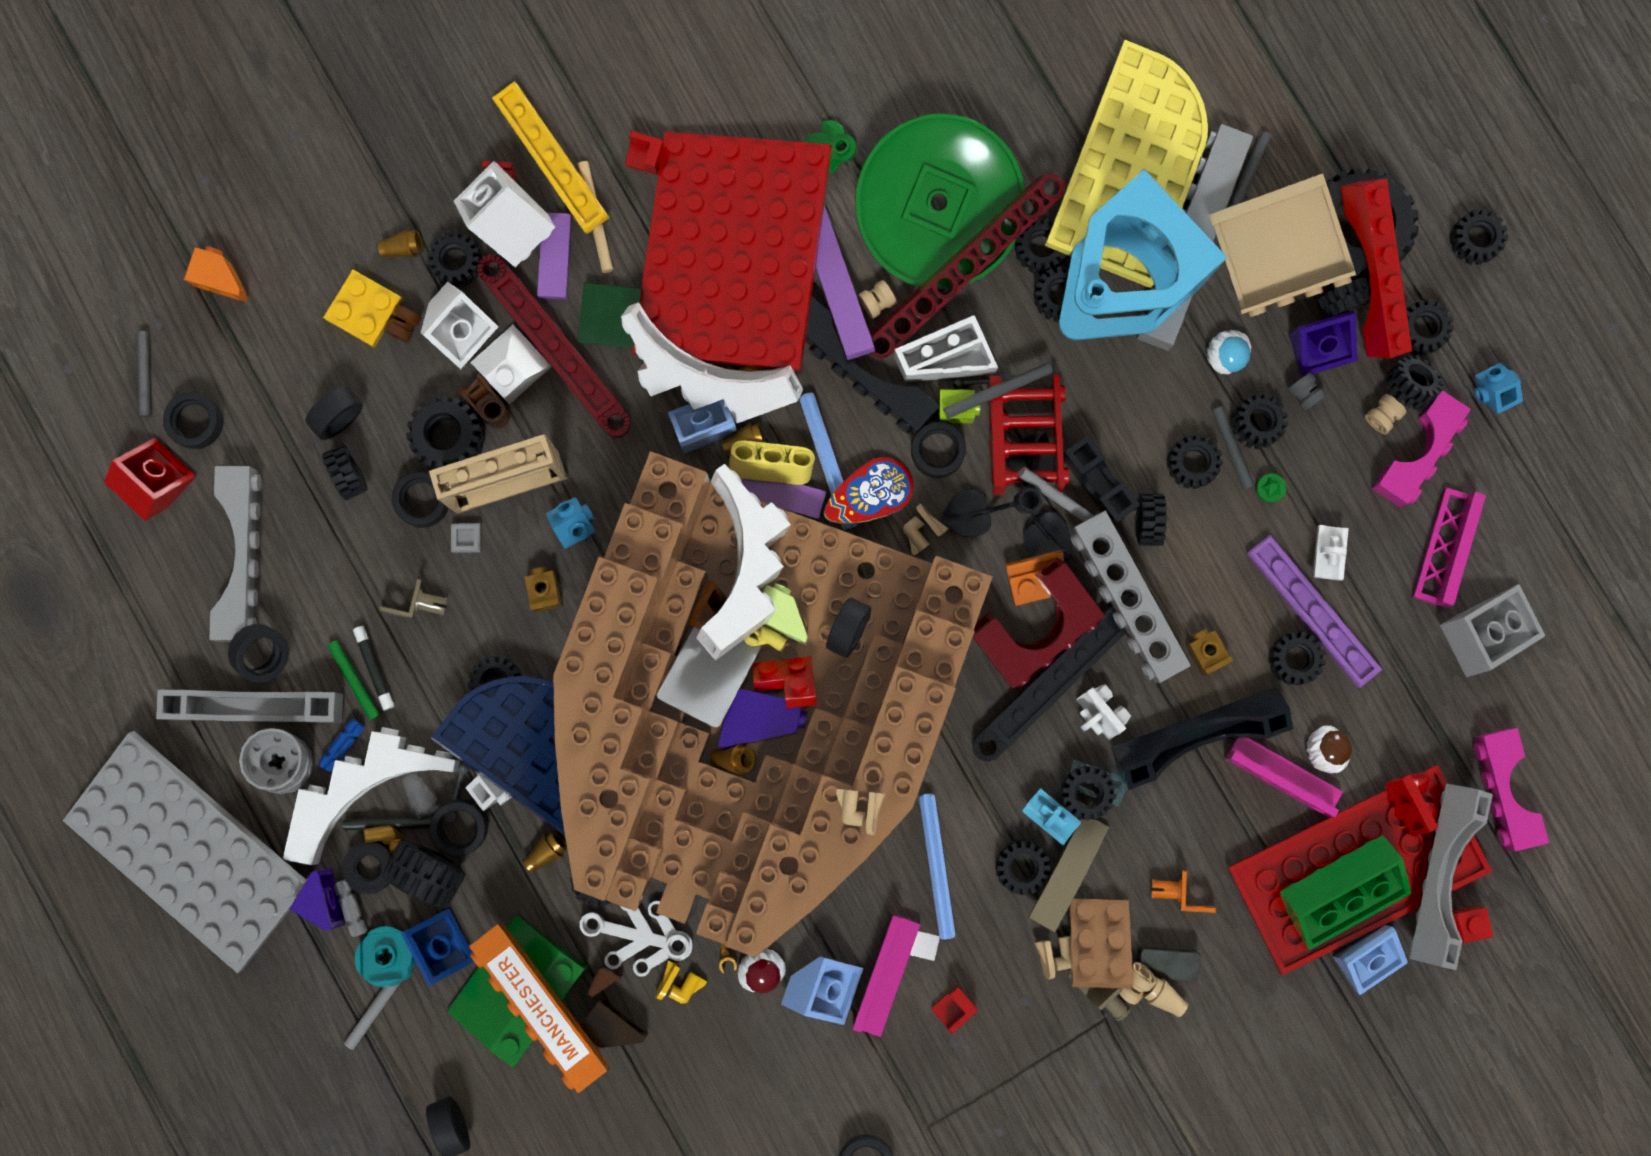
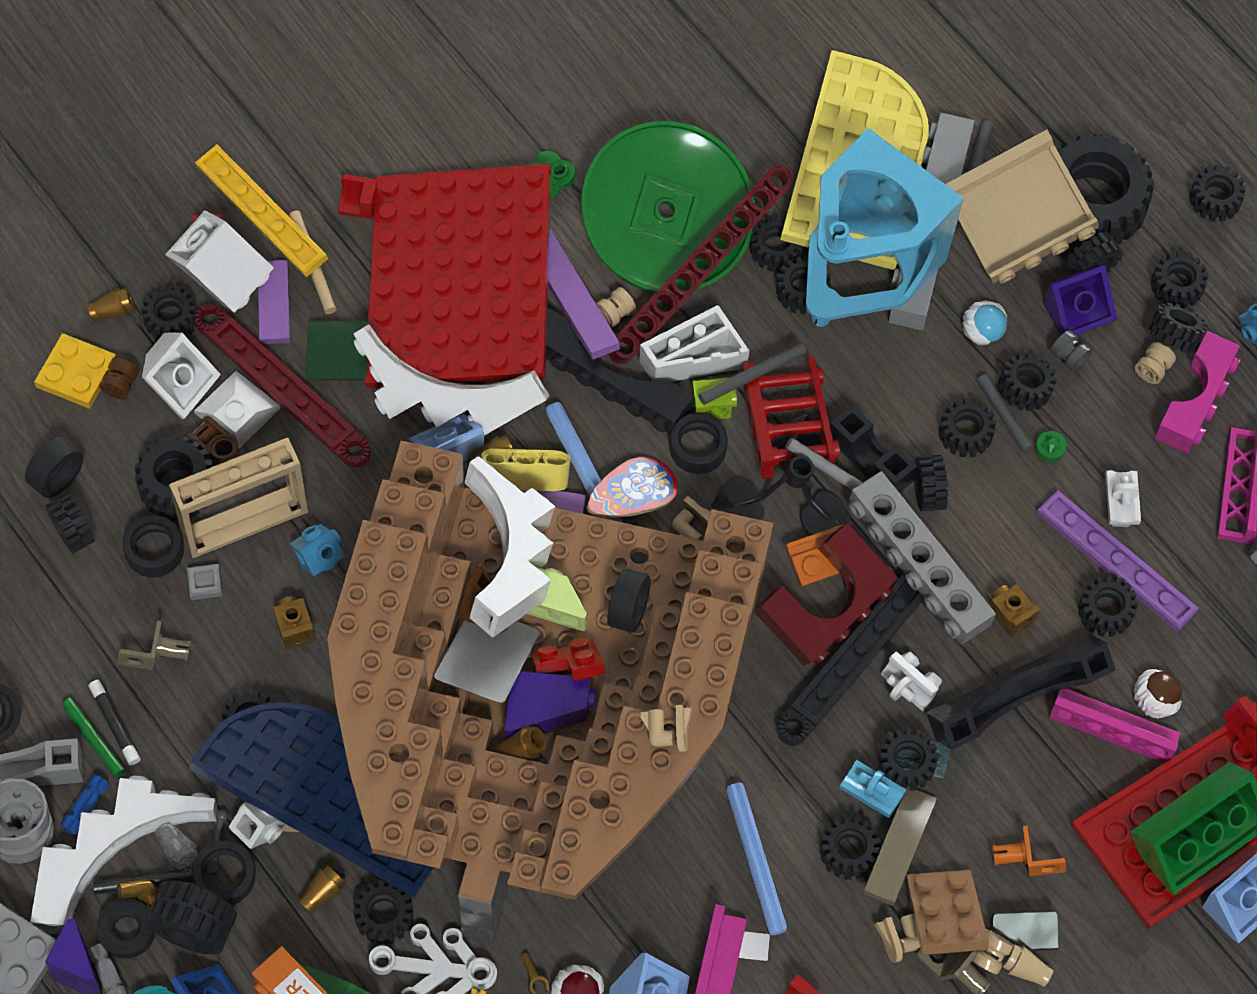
camera: 10 degrees left, 20 degrees down
(766, 635) = (538, 624): light yellow arm -> none
(1370, 214) = (1139, 273): red arch -> none

